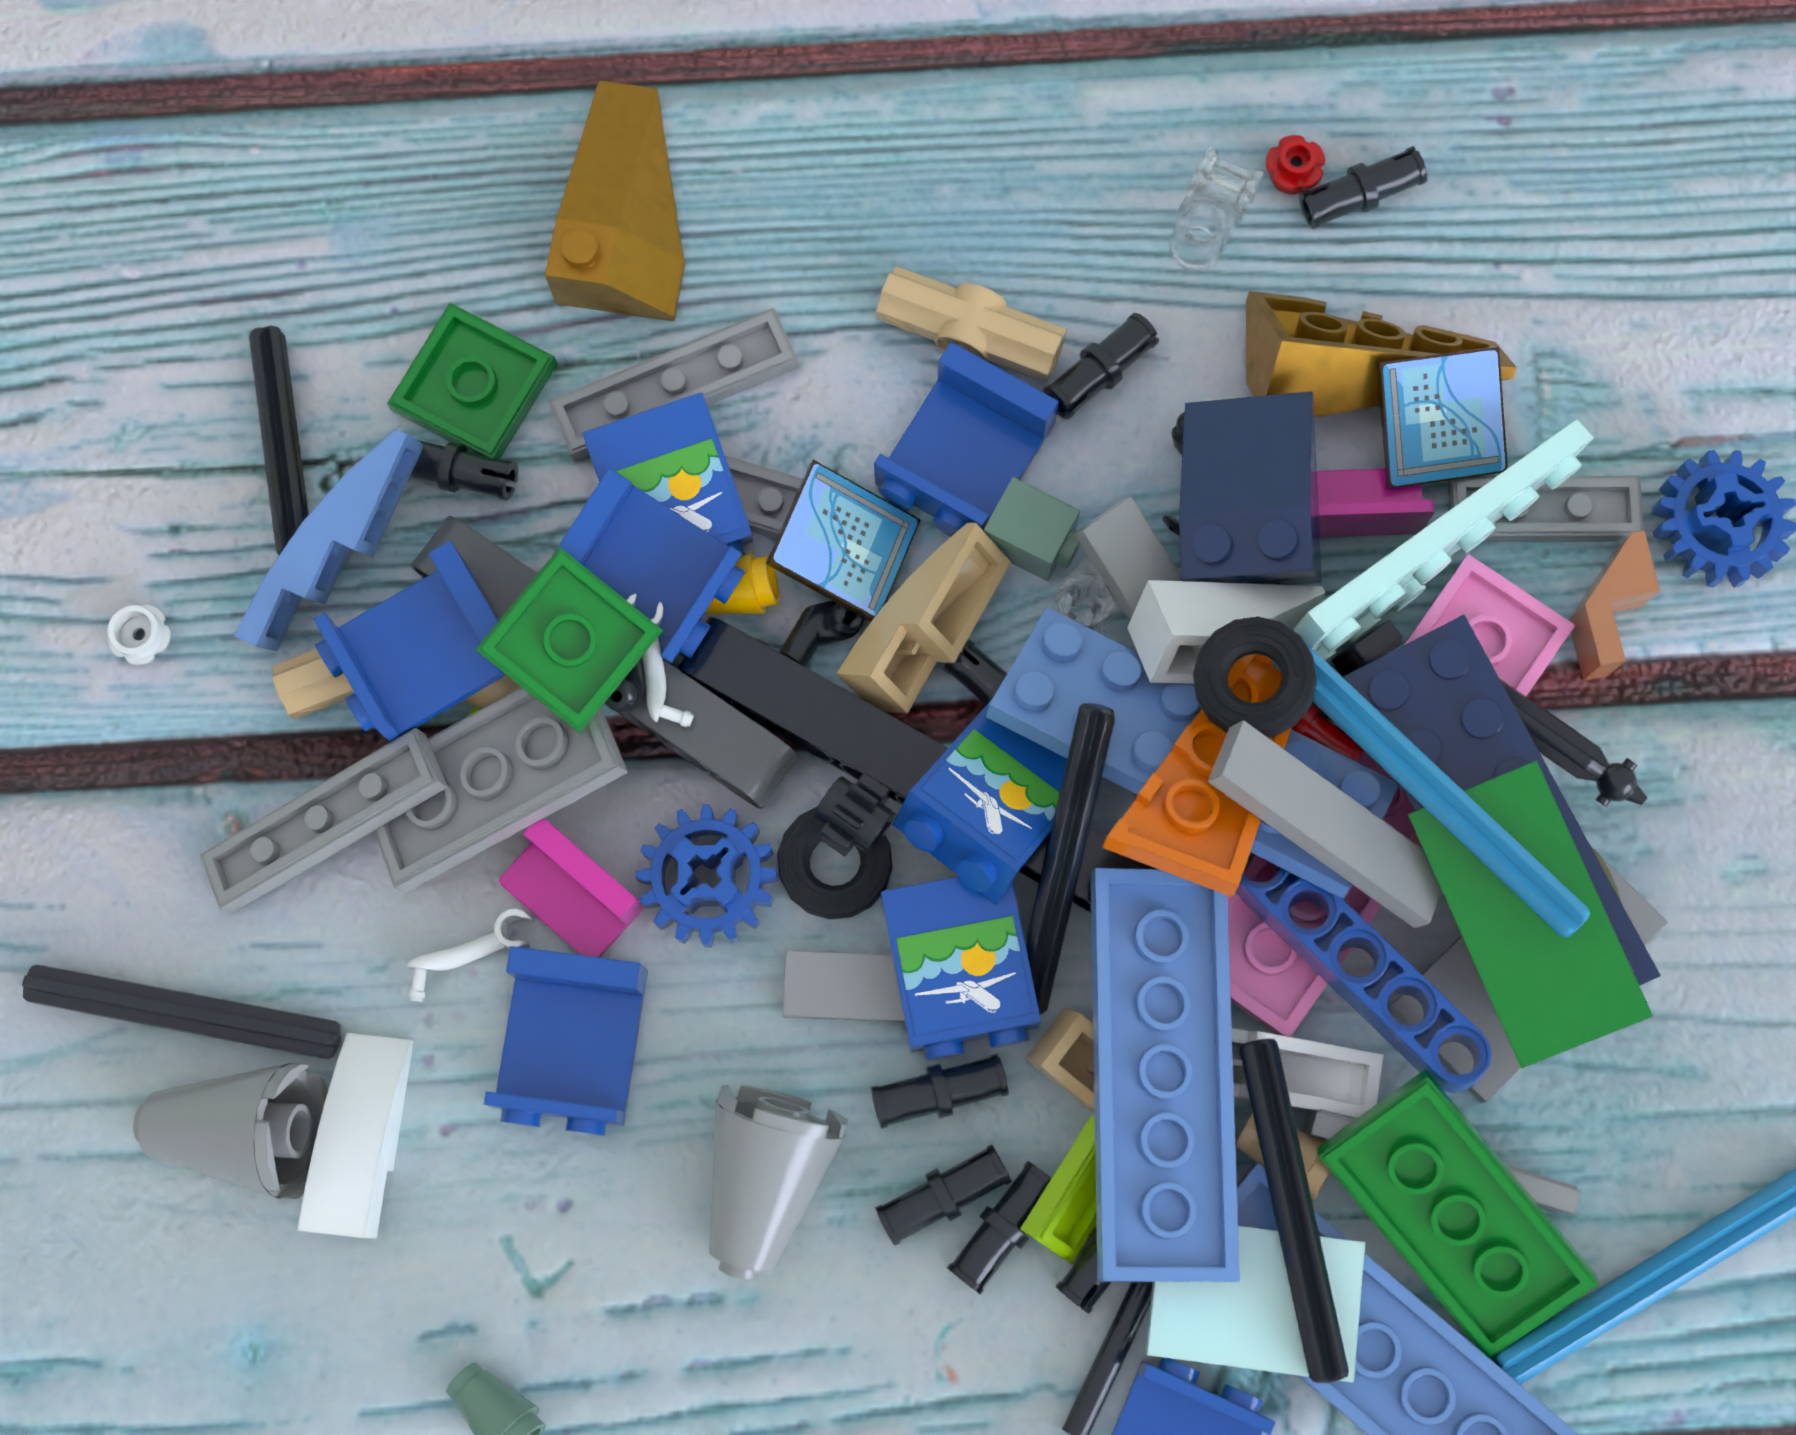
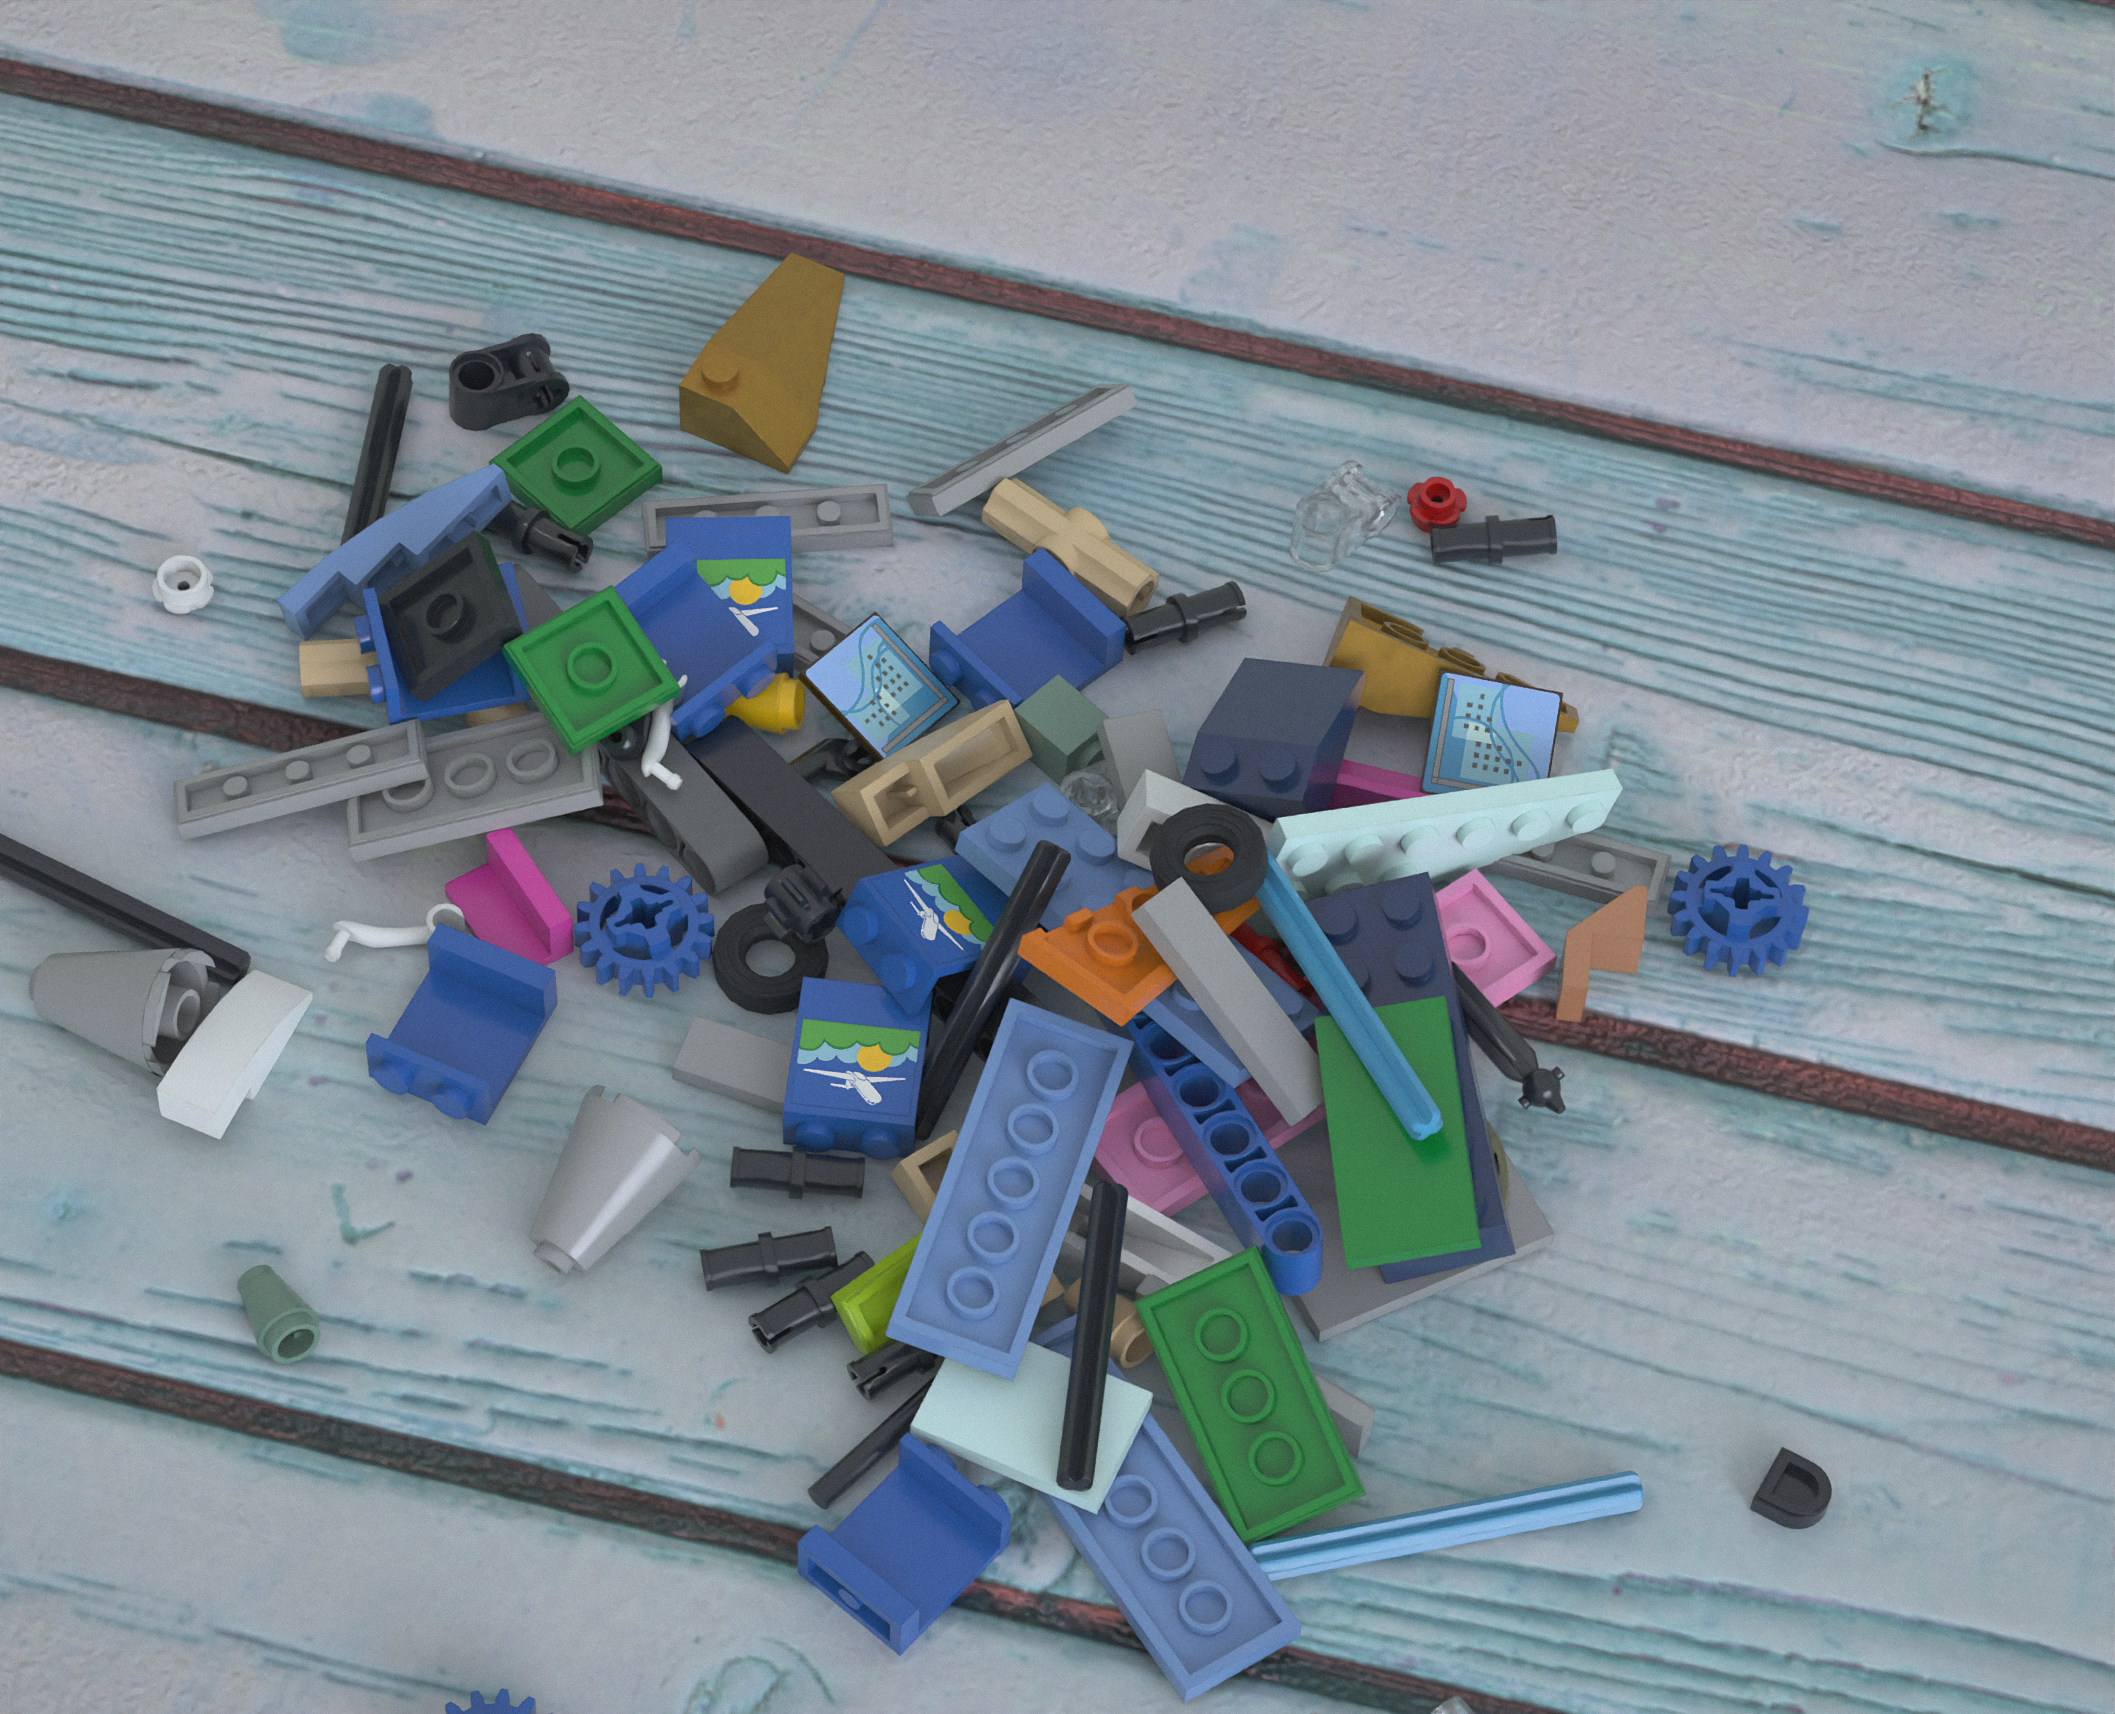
camera: 10 degrees right, 20 degrees down
(378, 307) = (503, 383): none -> black piece
(409, 622) = (449, 616): none -> black plate
(890, 232) = (1021, 449): none -> light grey tile

